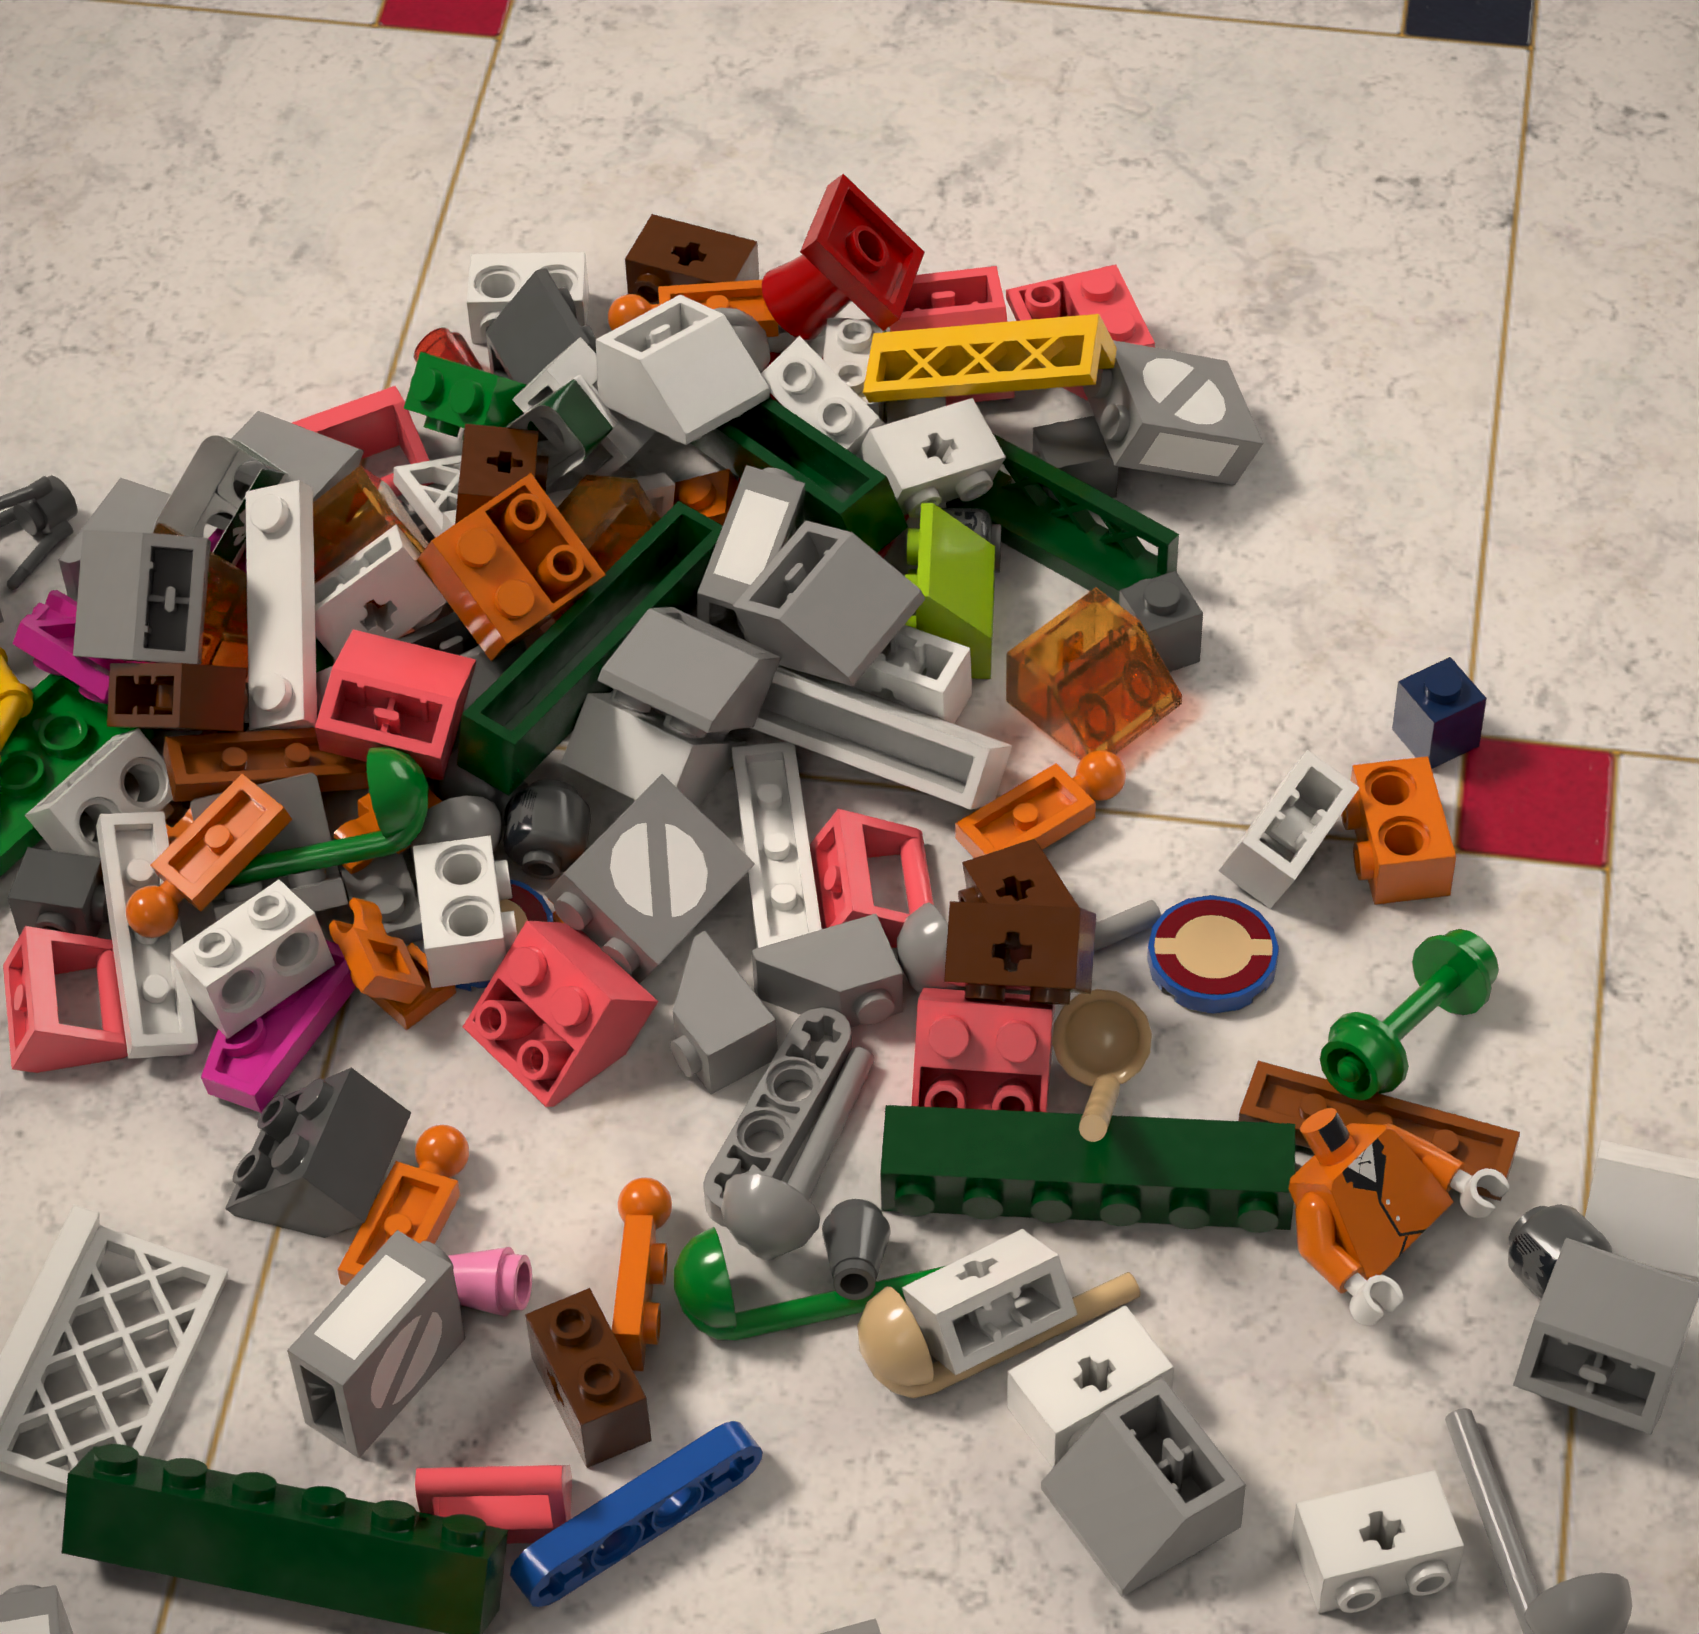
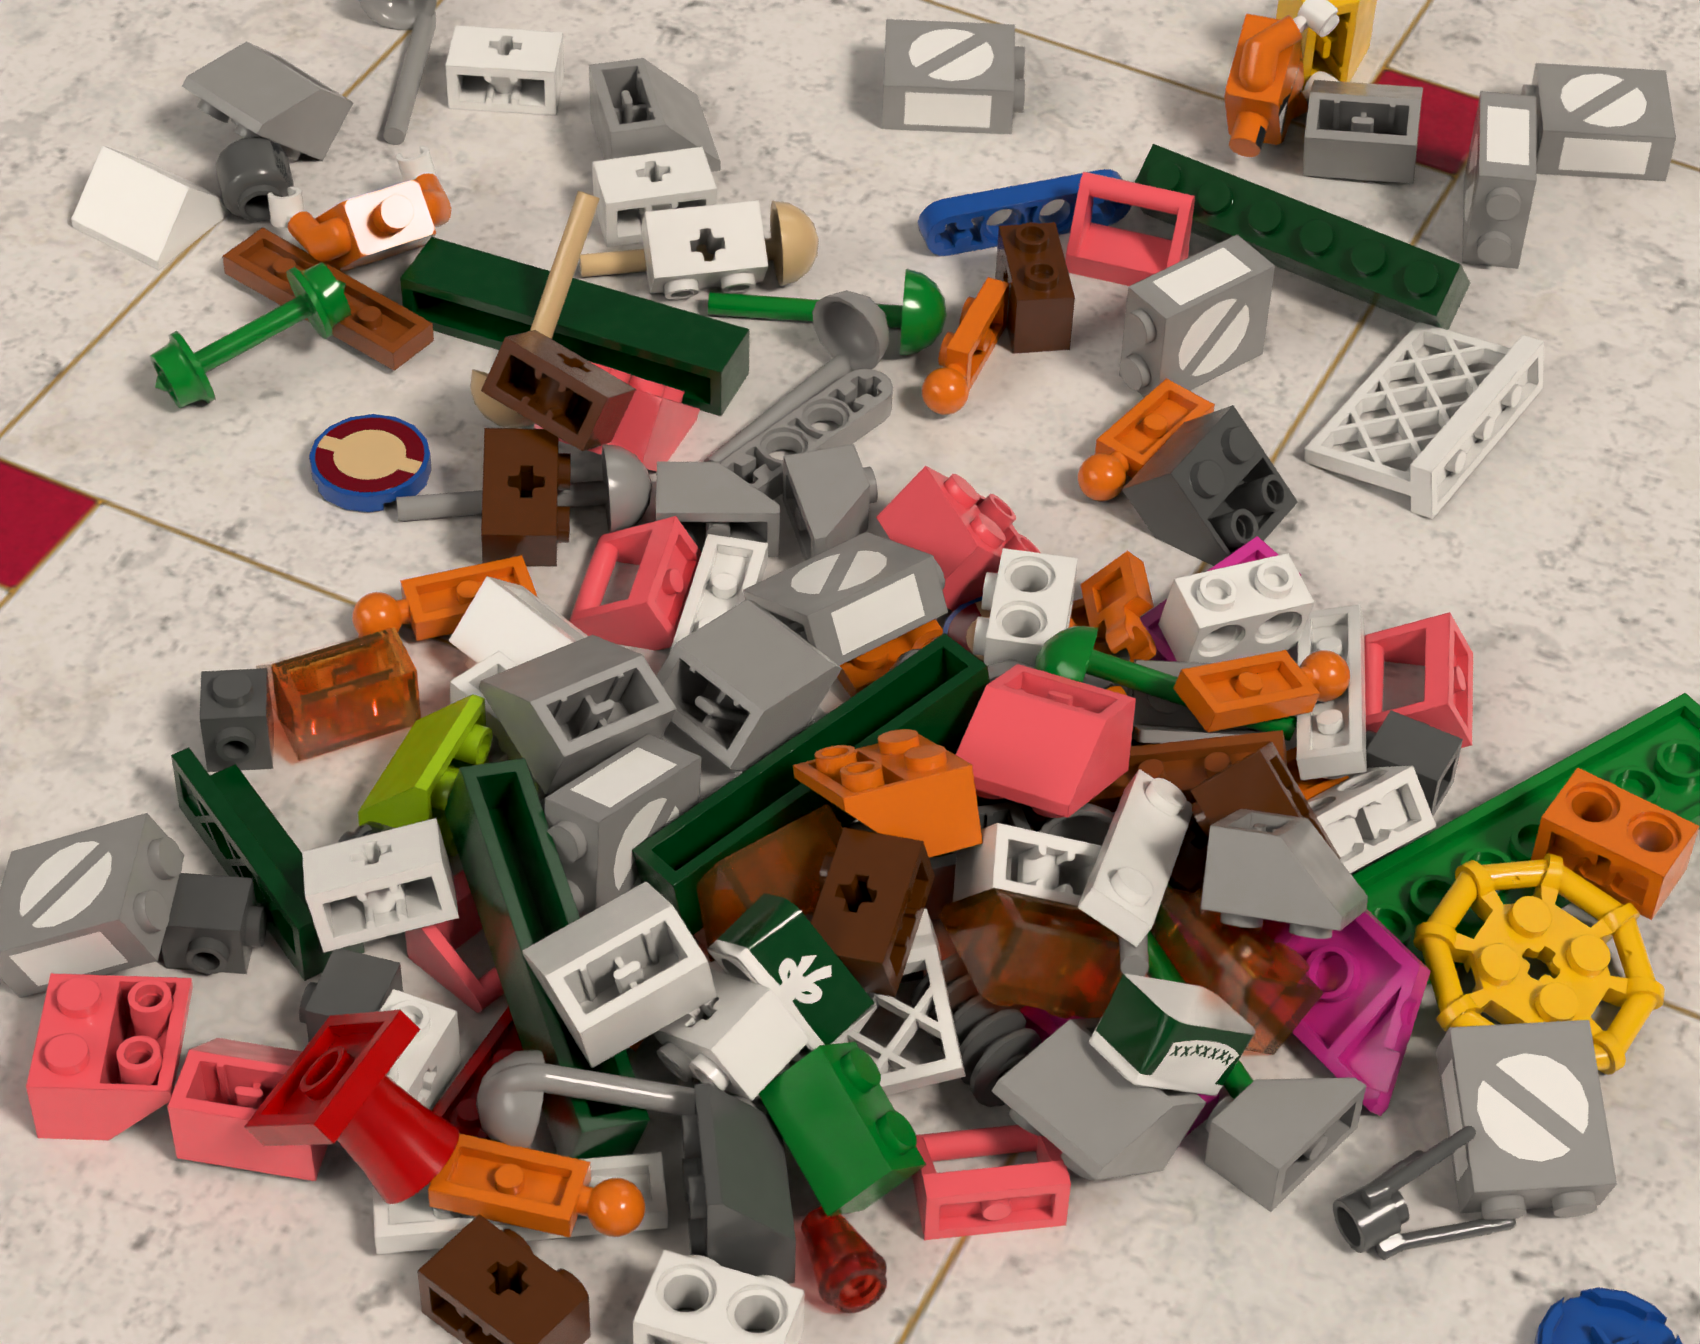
camera: 165 degrees left, 5 degrees down
(493, 1280) = (1096, 380): bright pink cone -> none
(819, 396) = (461, 960): white brick -> none
(855, 1246) = (788, 318): dark grey cone -> none
(988, 358) = (252, 945): yellow fence -> none
(1289, 829) = (248, 497): white brick -> none
(1400, 831) = (146, 493): orange brick -> none
(1439, 712) = (38, 569): dark blue brick -> none

